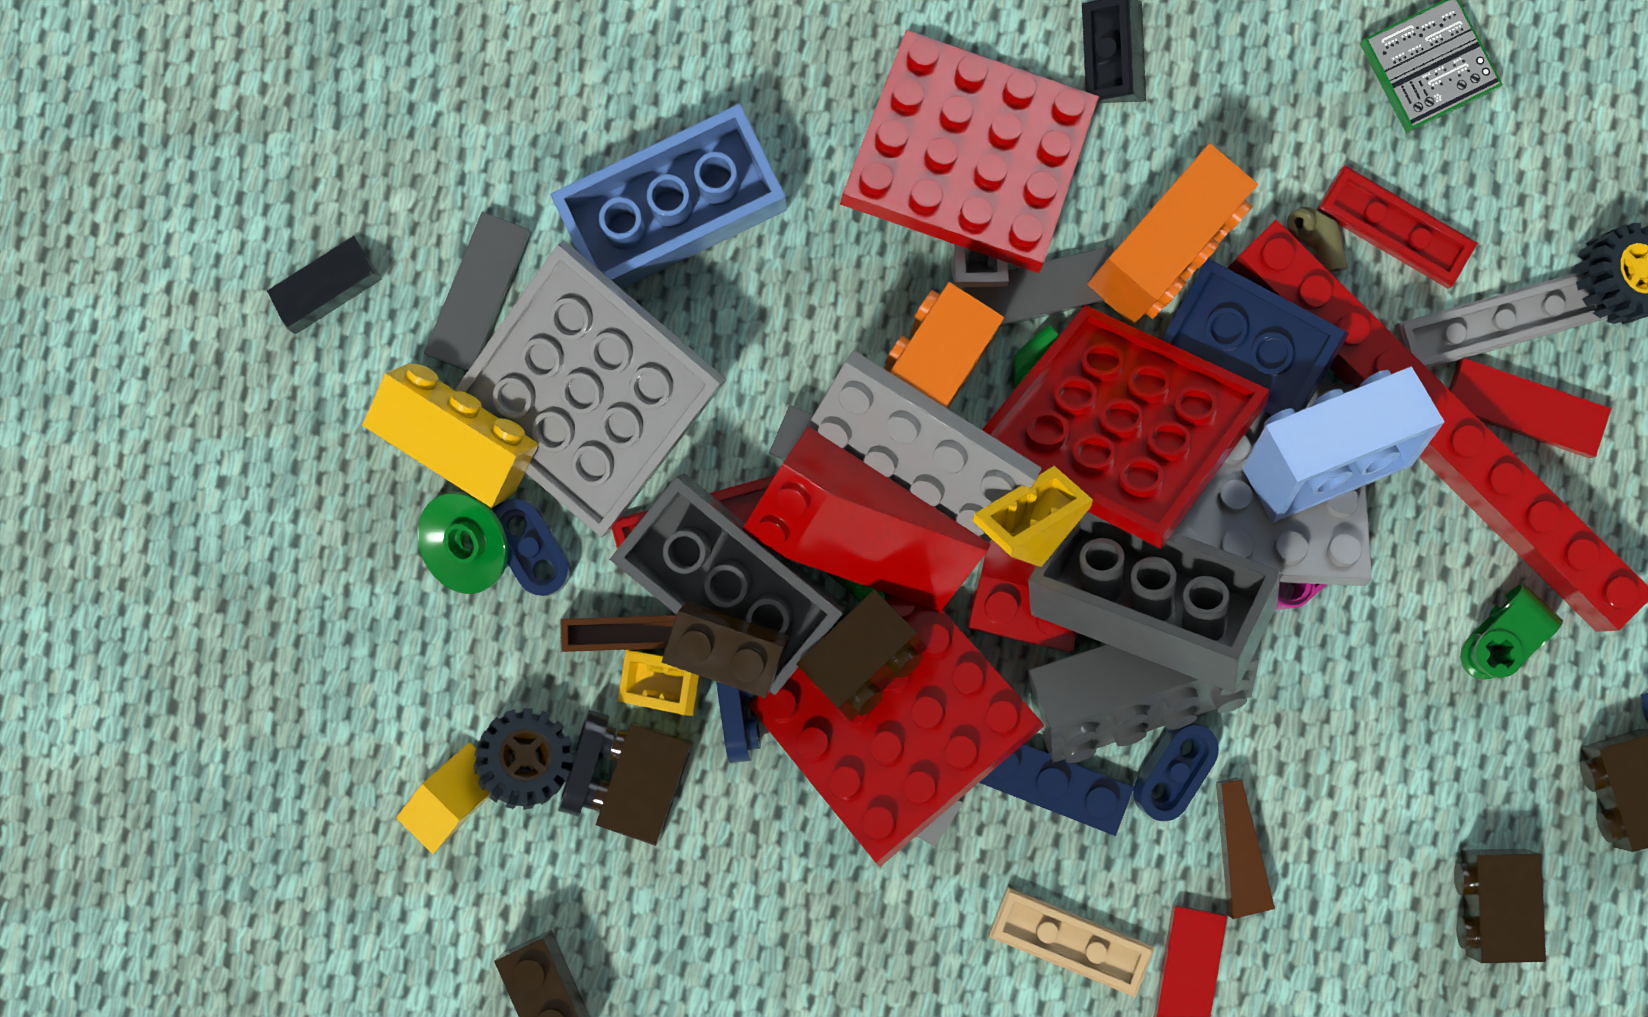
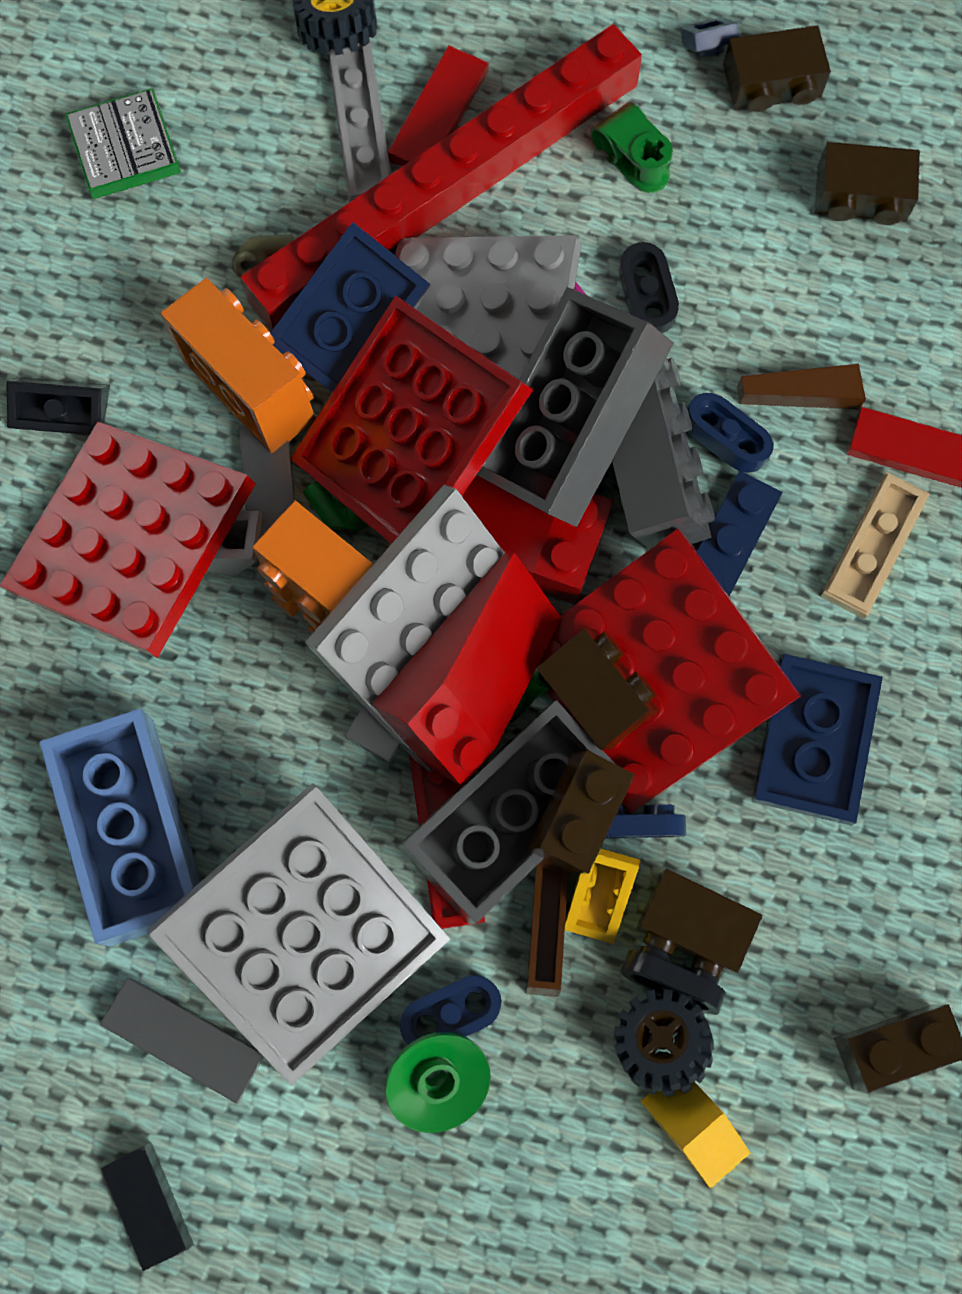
camera: 85 degrees left, 10 degrees down
(450, 433) = (323, 1082): yellow brick -> none
(838, 896) = (820, 742): none -> dark blue plate
(1035, 519) = (489, 493): yellow slope -> none
(1335, 669) = (651, 290): none -> black plate
(1341, 442) = (453, 238): light blue brick -> none
(1397, 227) = (262, 191): red tile -> none

